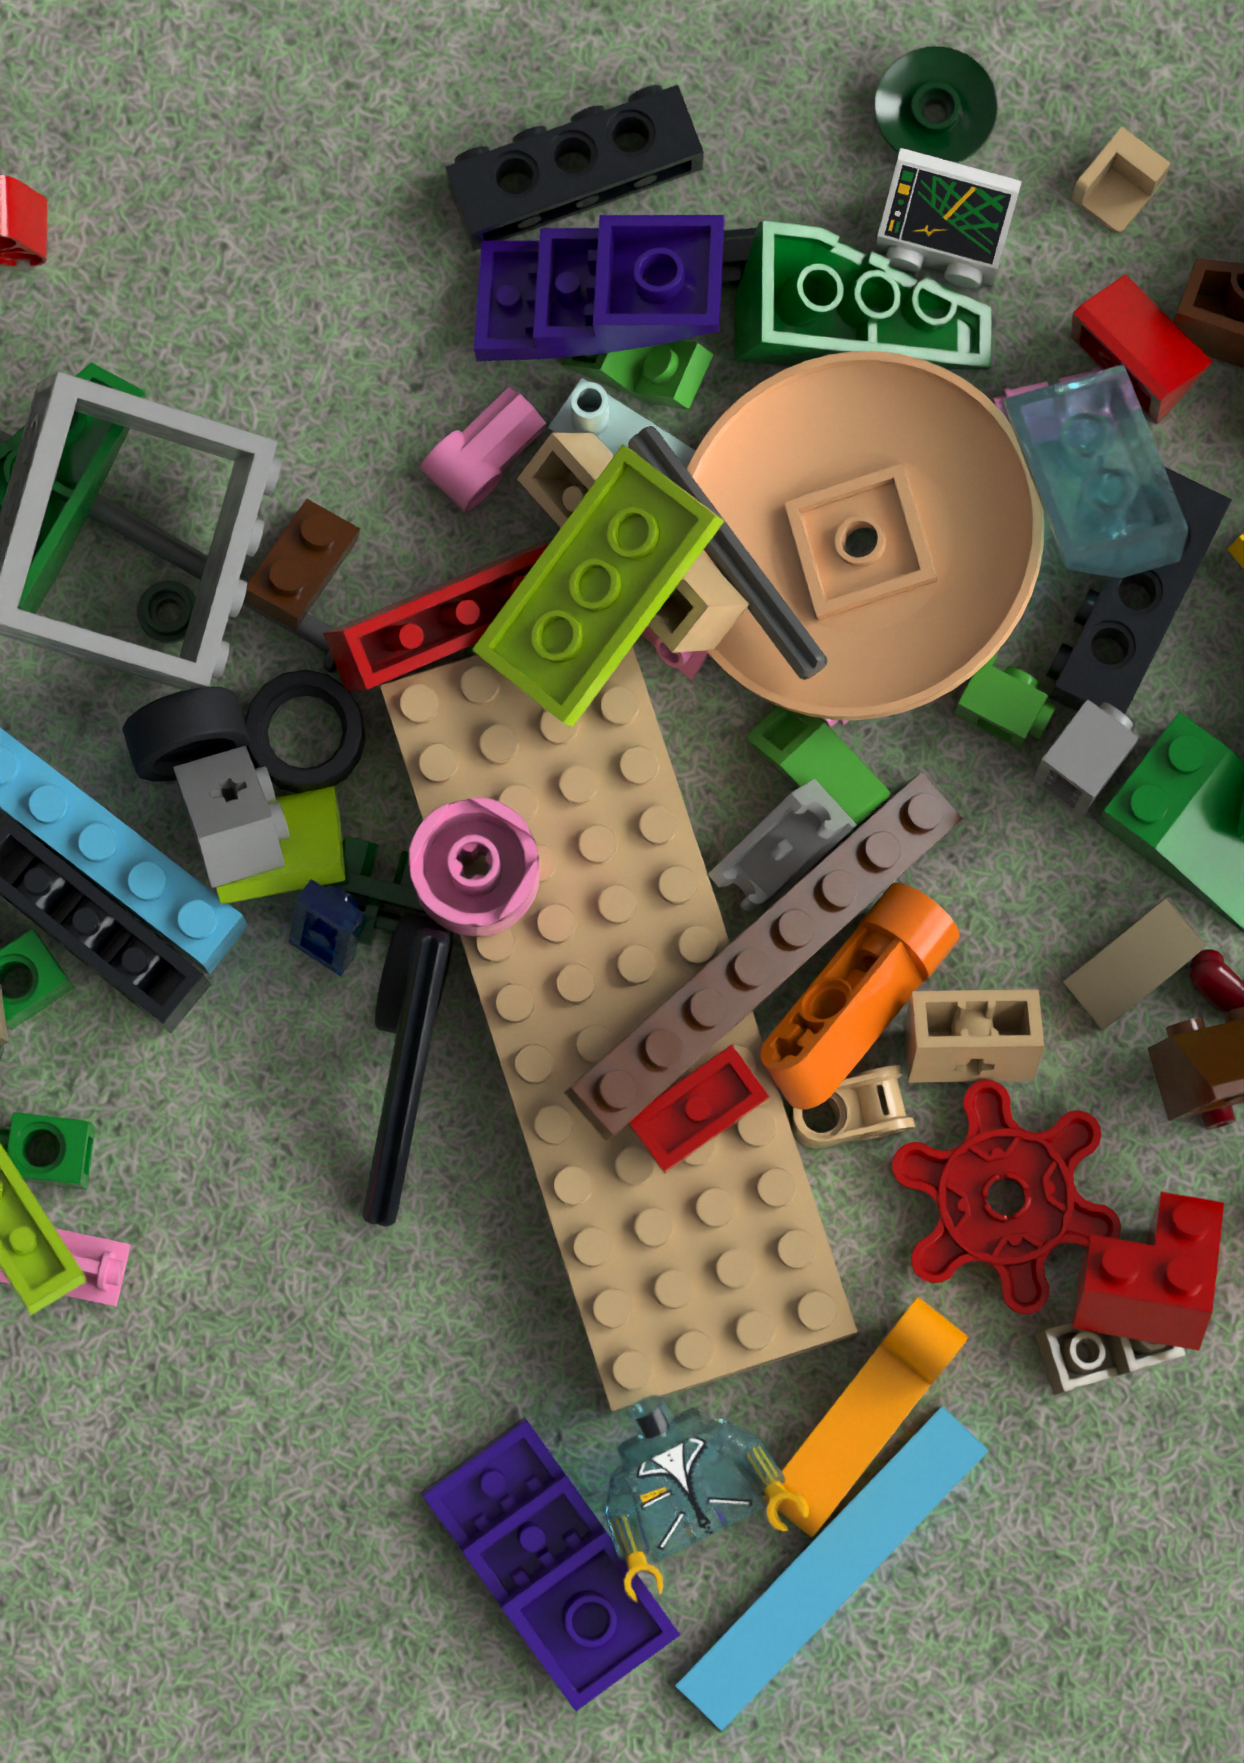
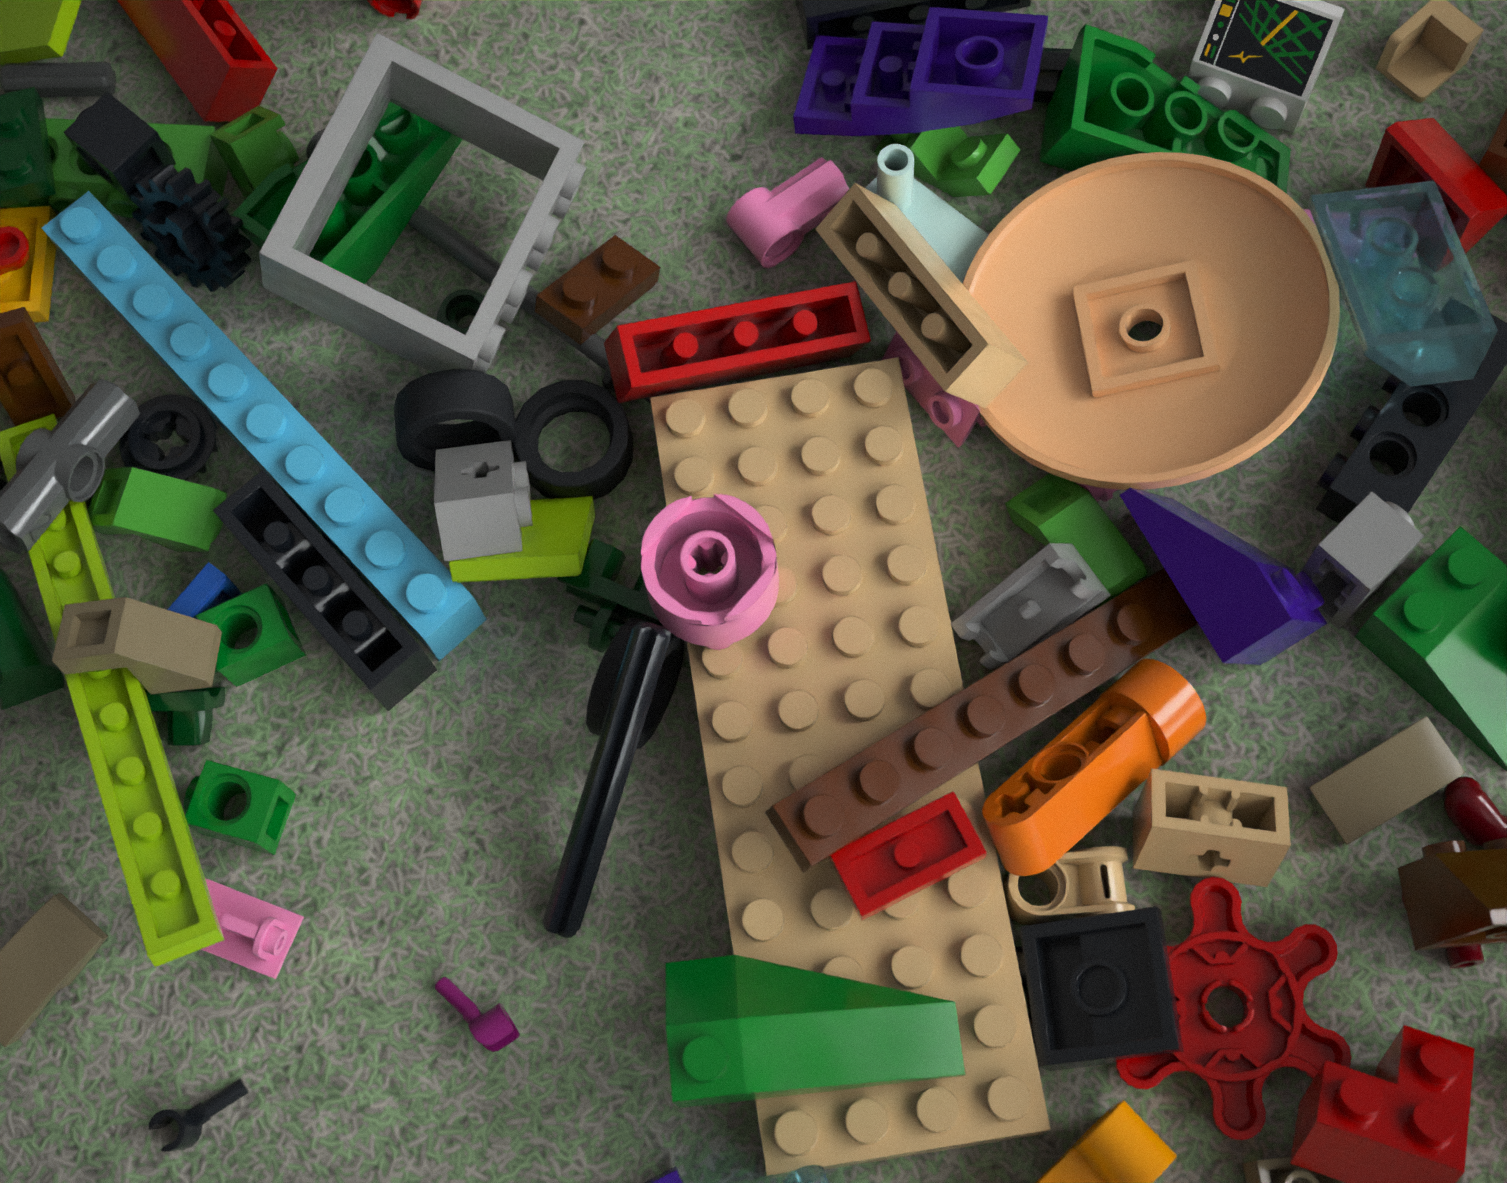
camera: 15 degrees right, 10 degrees down
(72, 1440) = (191, 1120): none -> black hand
(326, 926) = (555, 620): plate -> none
(332, 1320) = (491, 1029): none -> magenta hand
(597, 585) = (879, 314): lime plate -> none
(610, 1282) = (781, 1030): none -> green wedge
(739, 566) = (1013, 318): dark grey axle -> none
(887, 1200) = (1099, 989): none -> black plate
(965, 796) = (1236, 592): none -> dark purple slope
(1005, 704) = (1272, 503): bright green brick -> none

